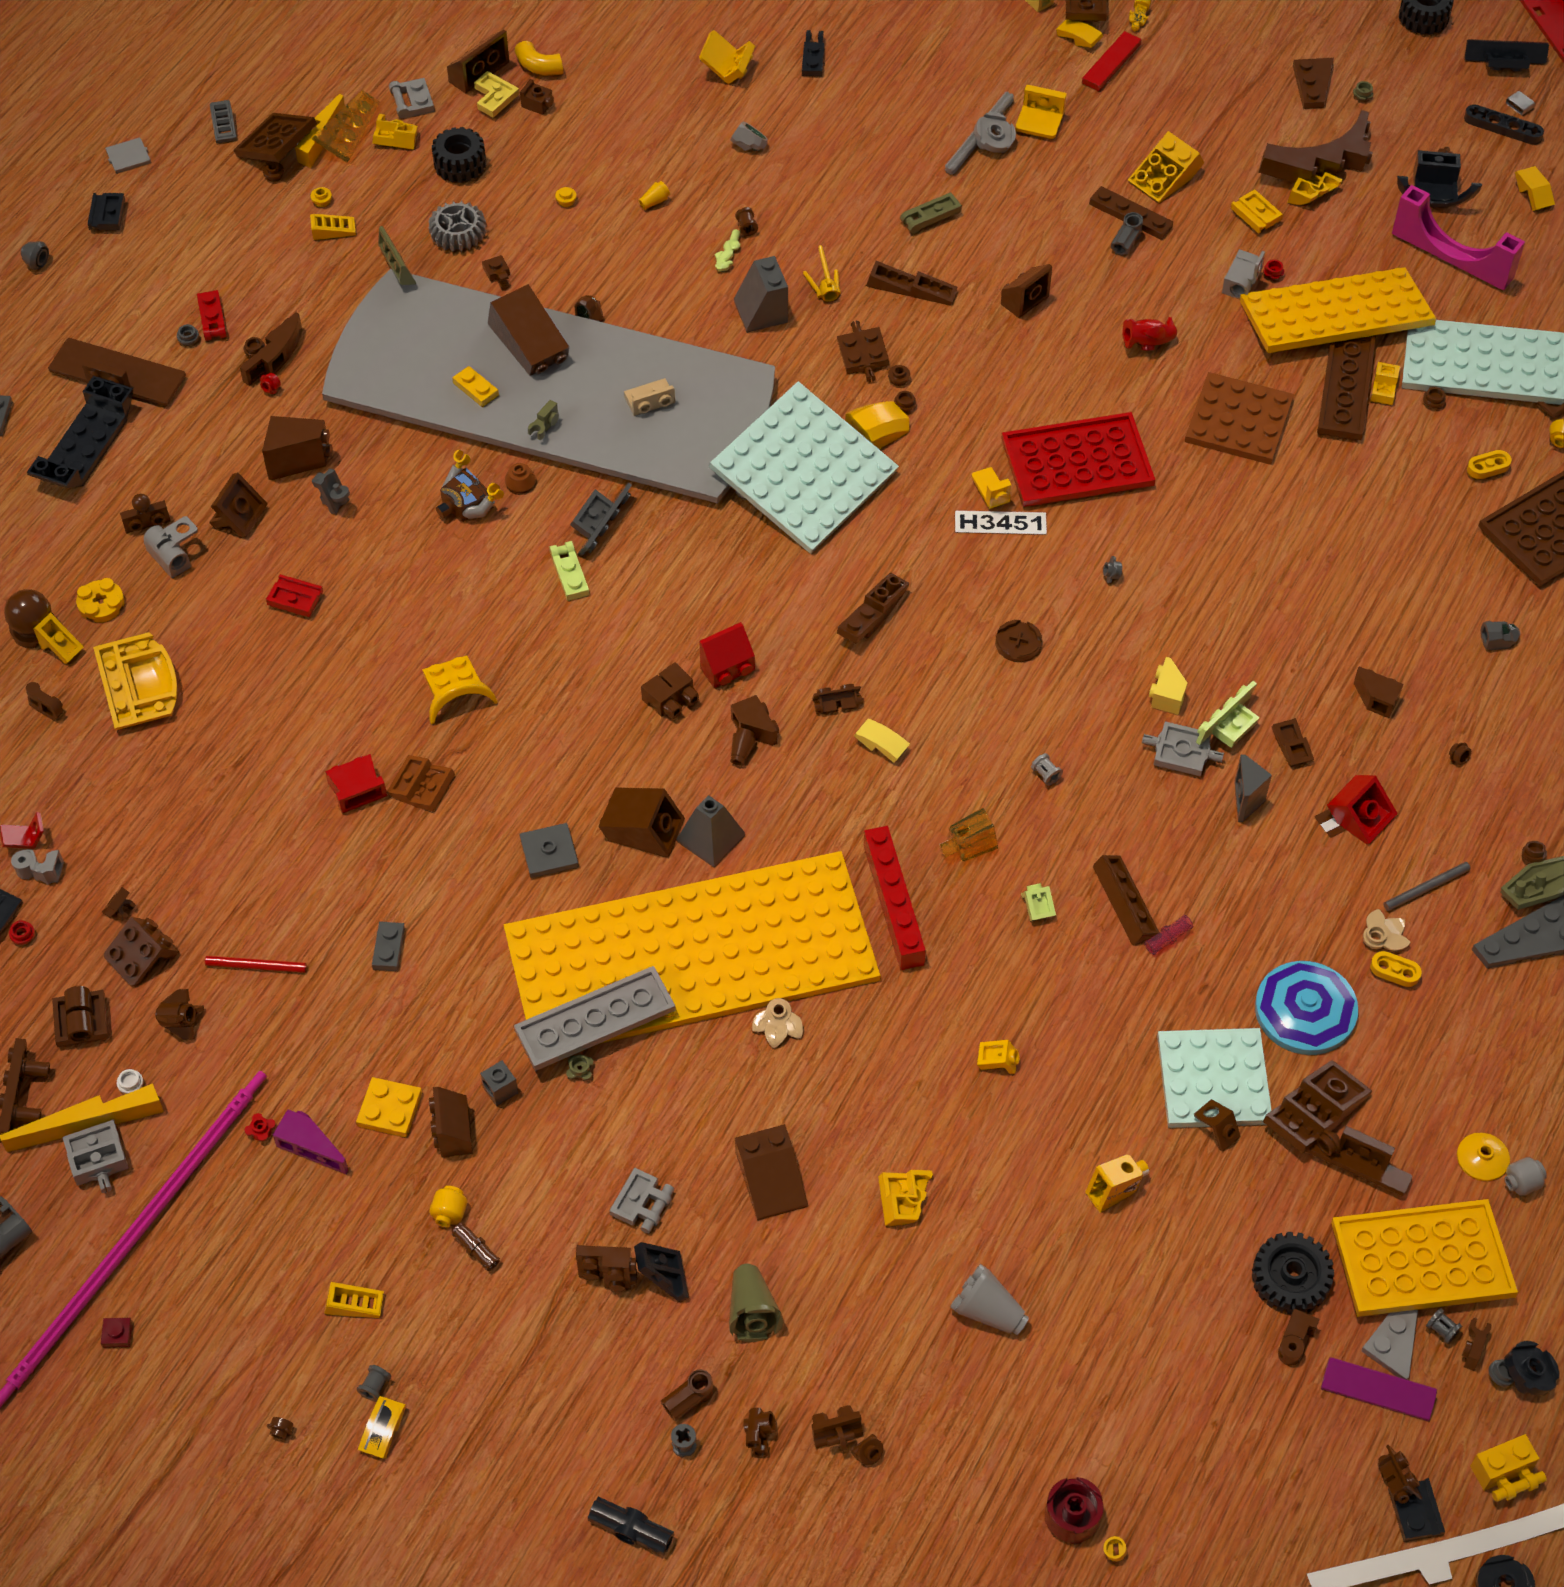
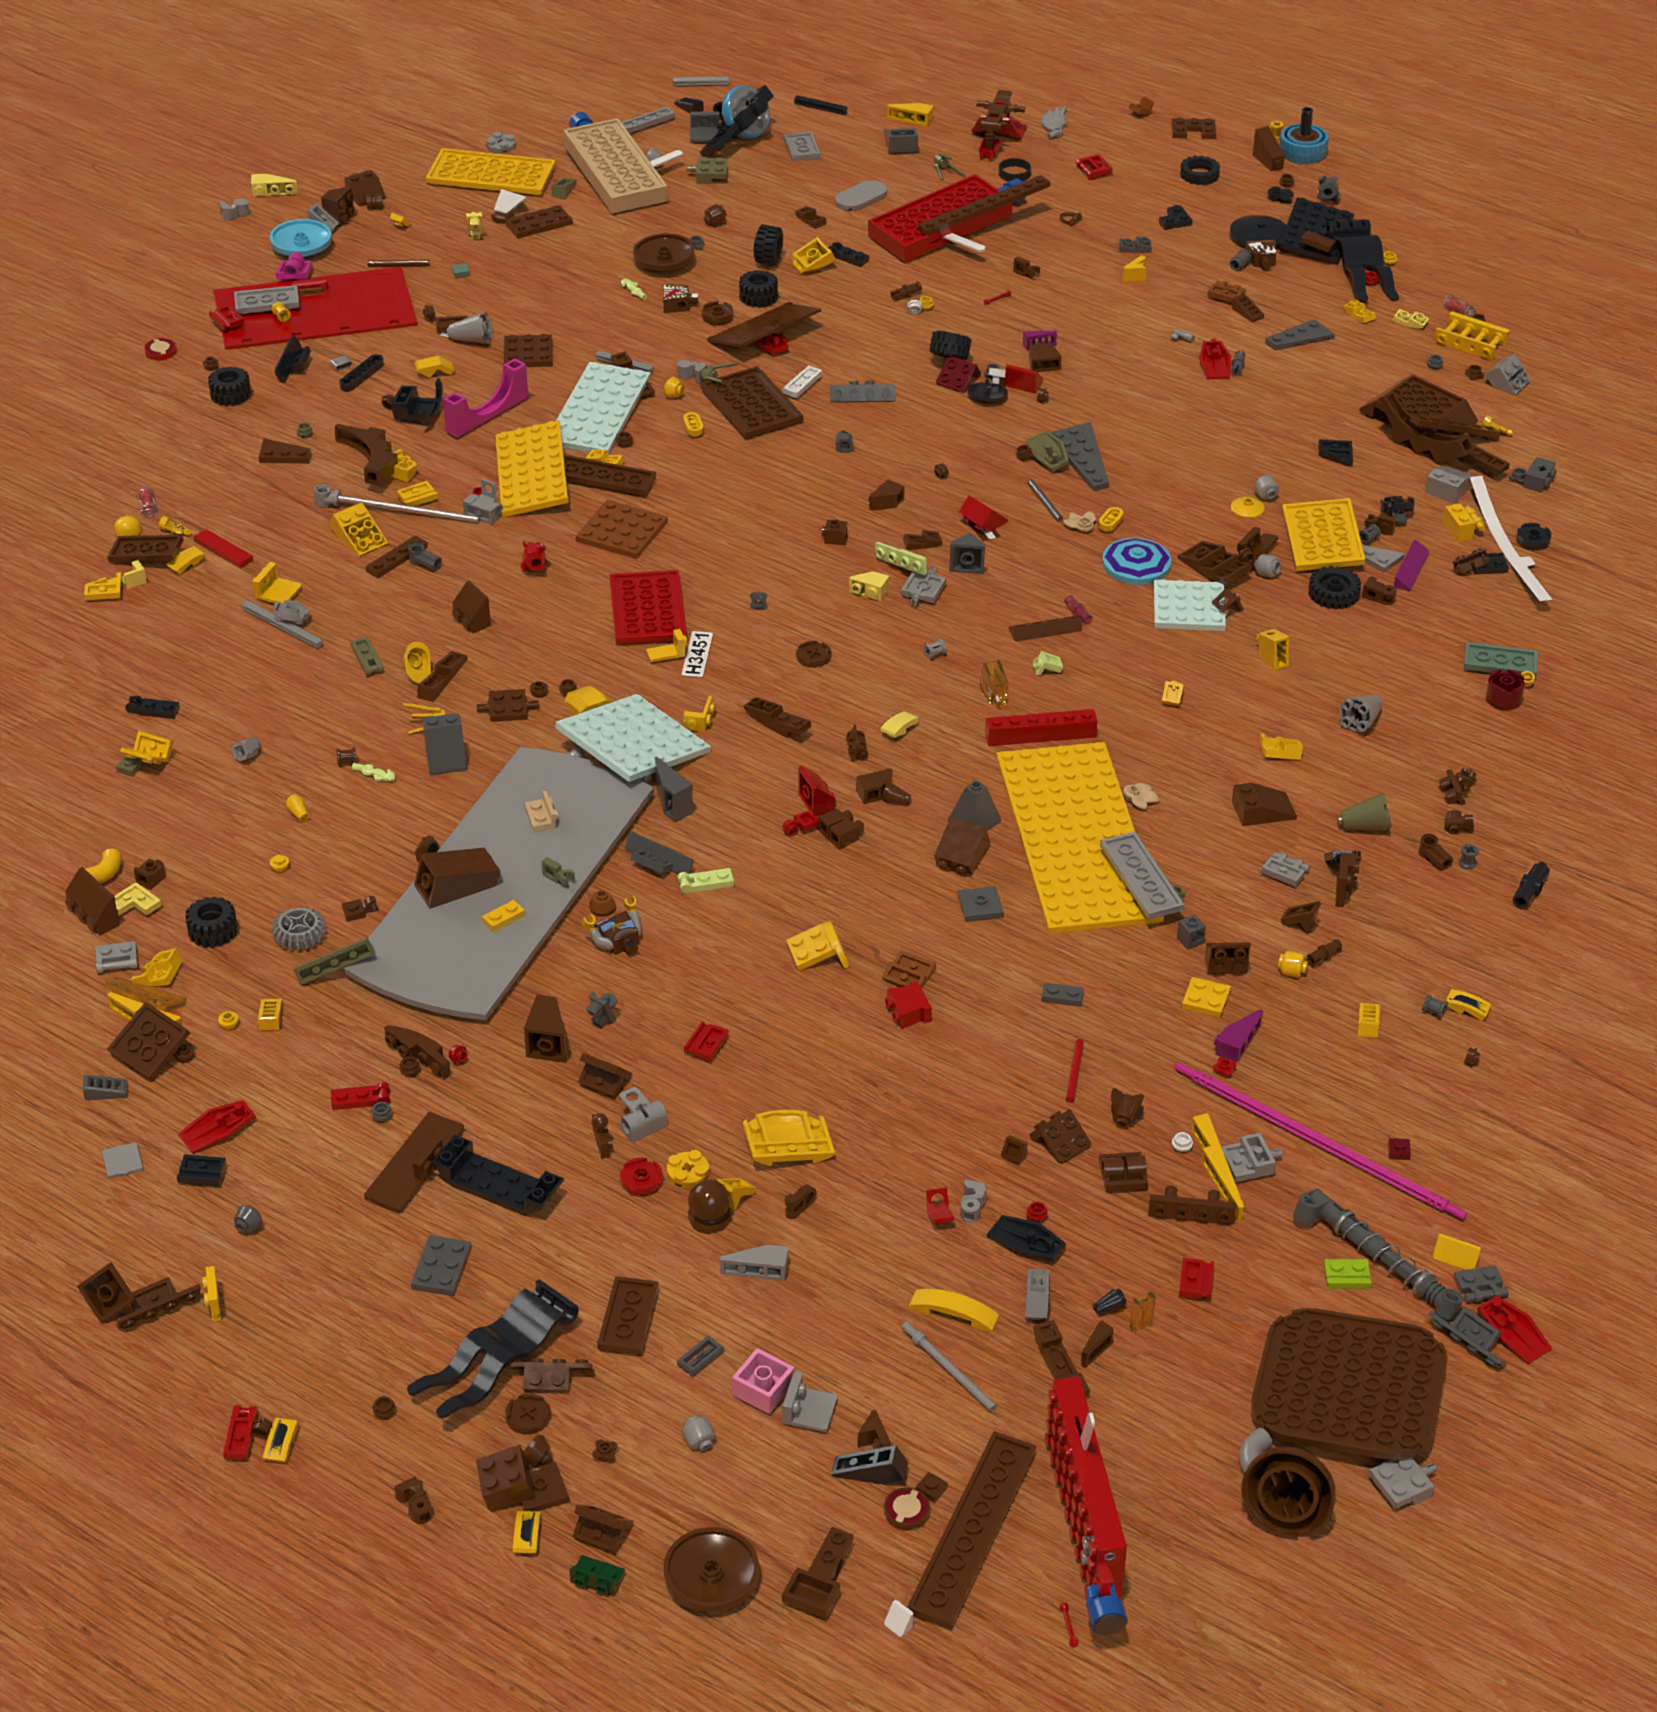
camera: 85 degrees left, 15 degrees down
(91, 570) = (640, 1186): none -> red plate
(170, 213) = (216, 1125): none -> red piece
(537, 1216) = (1304, 914): none -> reddish brown slope
(681, 653) = (804, 821): none -> red plate
(707, 511) = (673, 792): none -> dark grey slope
(867, 537) = (698, 721): none -> yellow bracket
(916, 254) = (417, 661): none -> yellow piece
(1158, 1513) = (1492, 657): none -> sand green plate
(1227, 138) = (324, 497): none -> flat silver piece
(1279, 640) = (835, 532): none -> reddish brown brick
(1324, 1178) = (1267, 565): none -> light grey head

